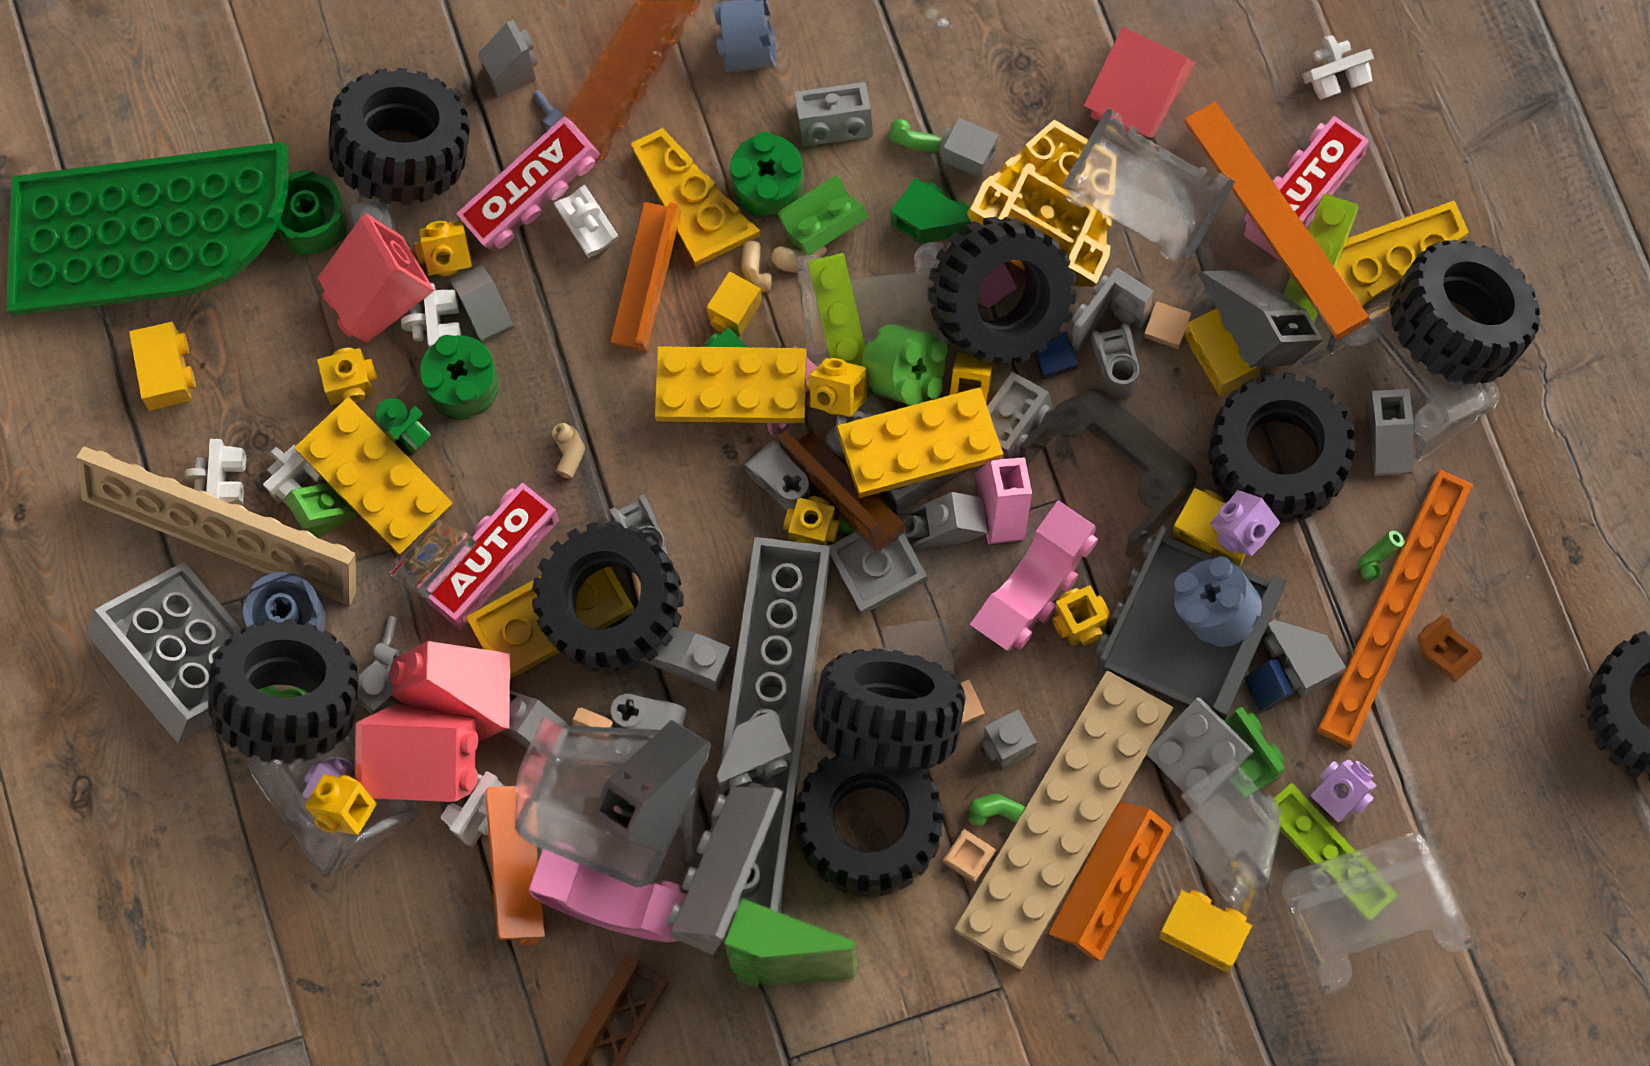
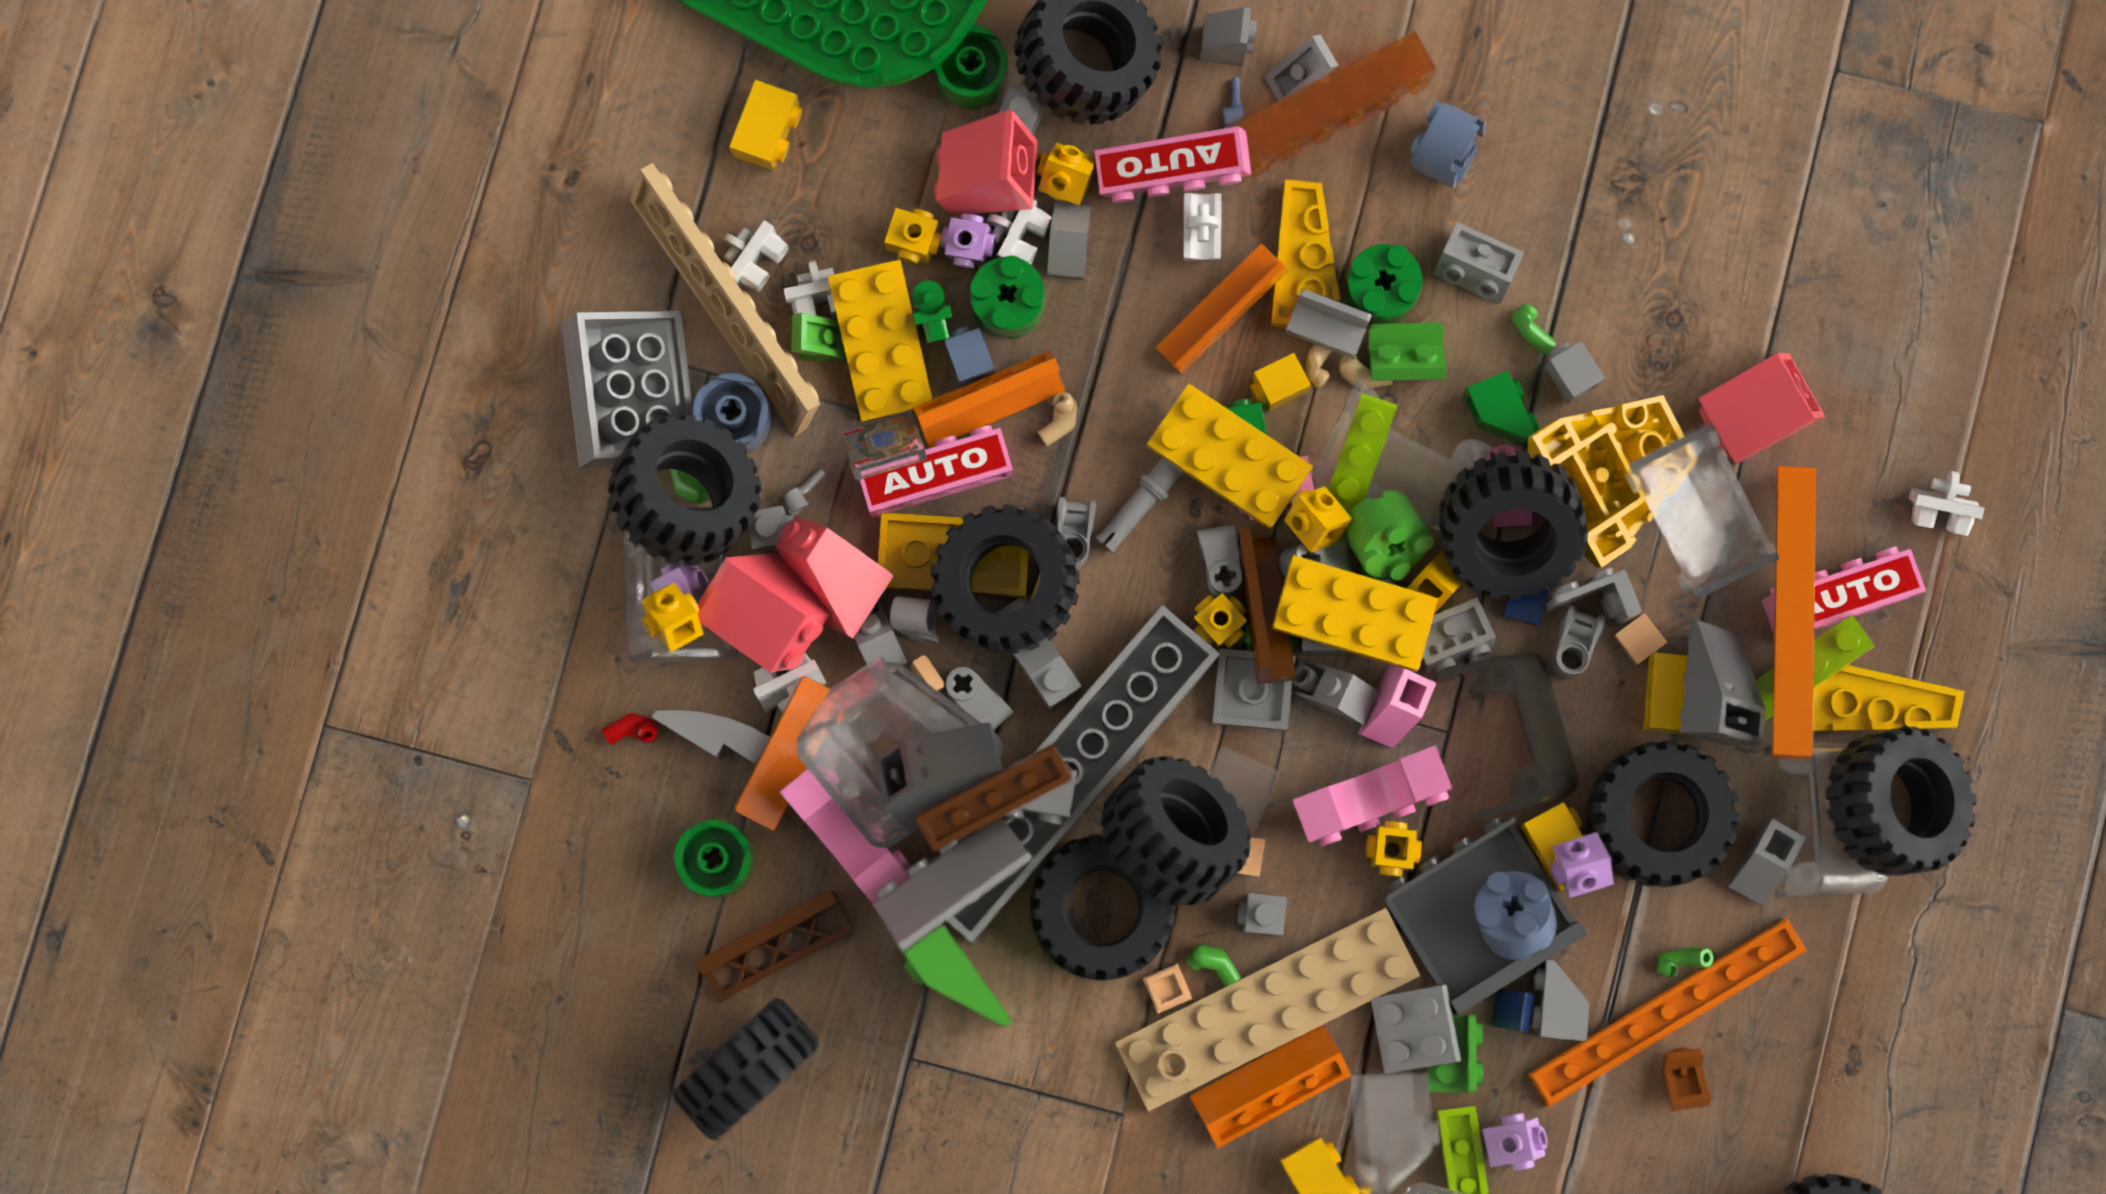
camera: 30 degrees right, 10 degrees up
(364, 931) = (633, 726): none -> red arm
(405, 360) = (977, 250): none -> lavender brick
(439, 890) = (715, 733): none -> light grey slope
(458, 444) = (968, 355): none -> sand blue brick
(488, 984) = (704, 840): none -> green brick
(498, 466) = (990, 398): none -> orange panel
(553, 682) = (915, 619): none -> light grey piece
(586, 46) = (1301, 68): none -> light grey slope
(684, 455) = (1152, 488): none -> light grey pin
(716, 769) = (994, 797): none -> reddish brown fence
(742, 230) = (1328, 323): none -> light grey panel
(1023, 903) = (1176, 1054): none -> tan plate

